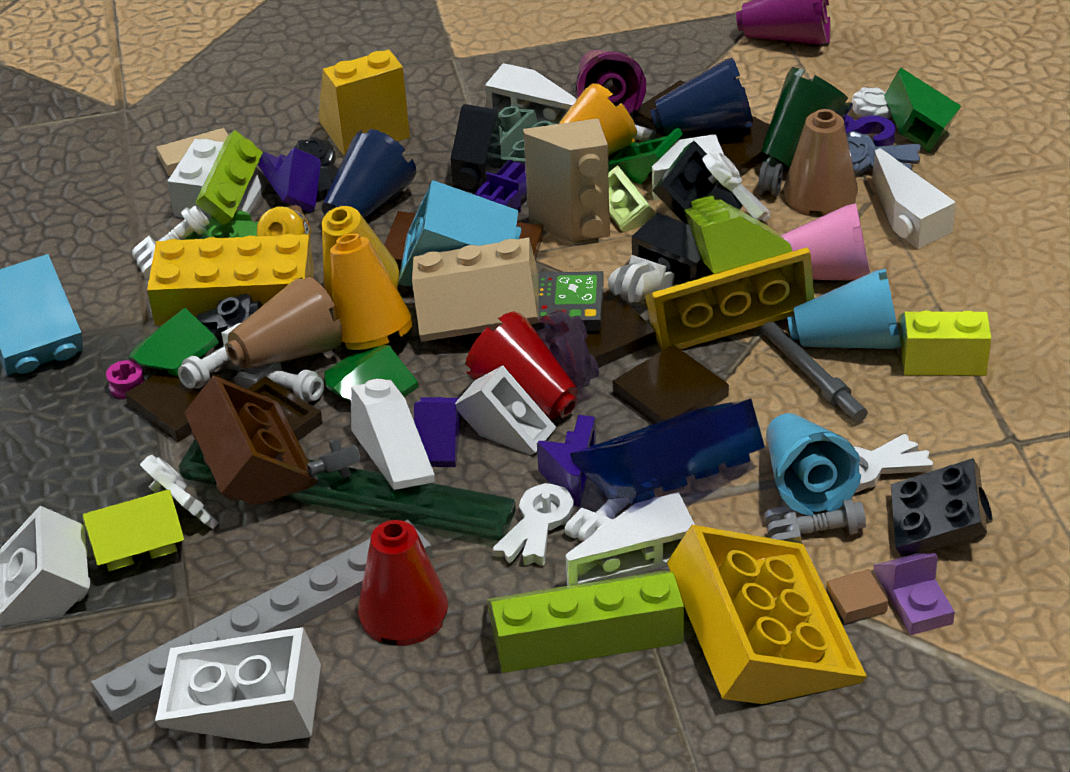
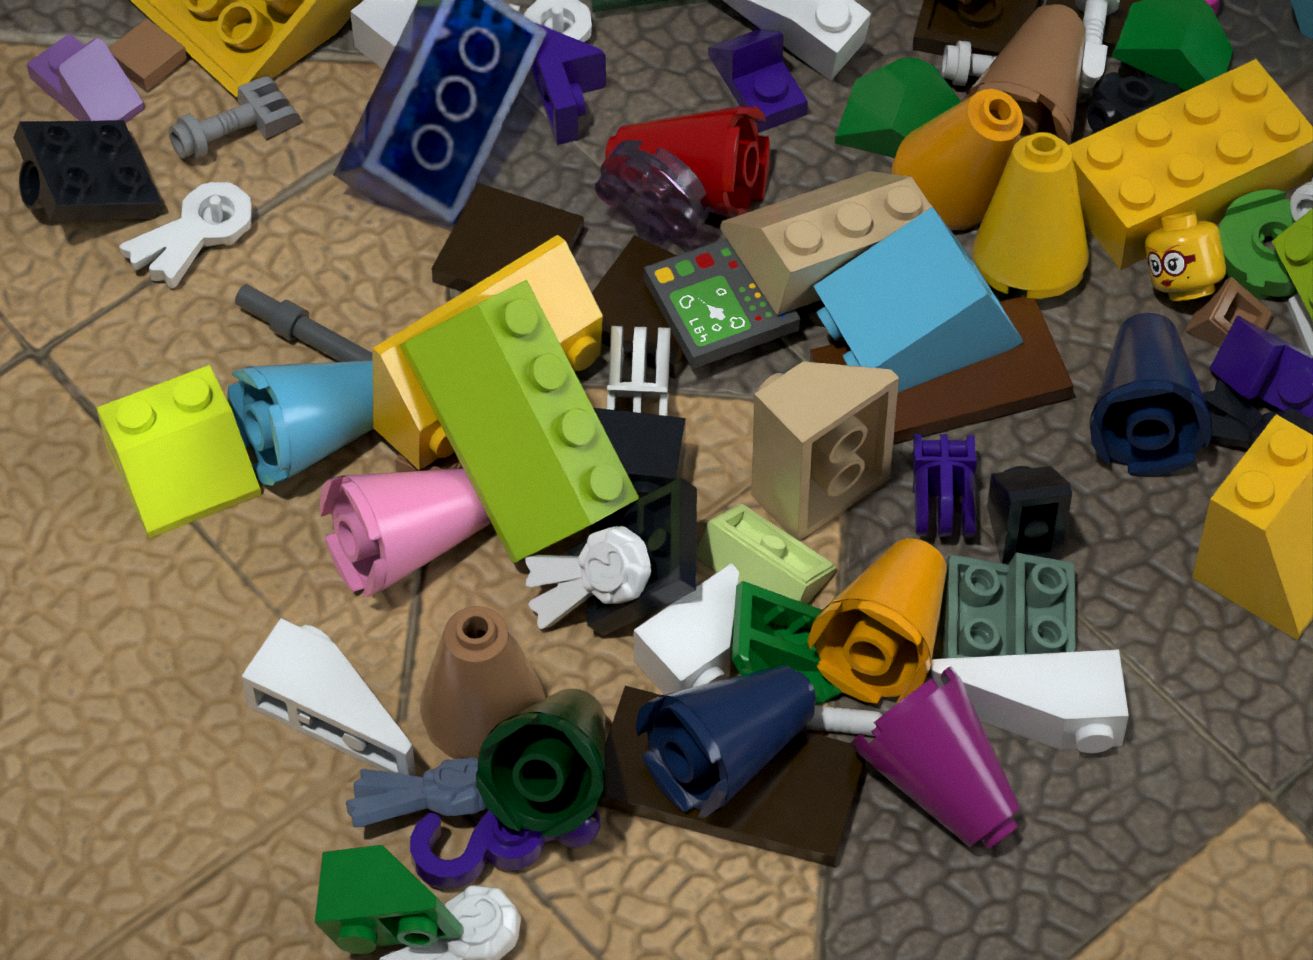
camera: 150 degrees right, 15 degrees up
(504, 412) = (685, 89): white slope -> none
(770, 179) = (561, 667): dark grey bush -> none
(811, 464) = (270, 158): medium azure cone -> none

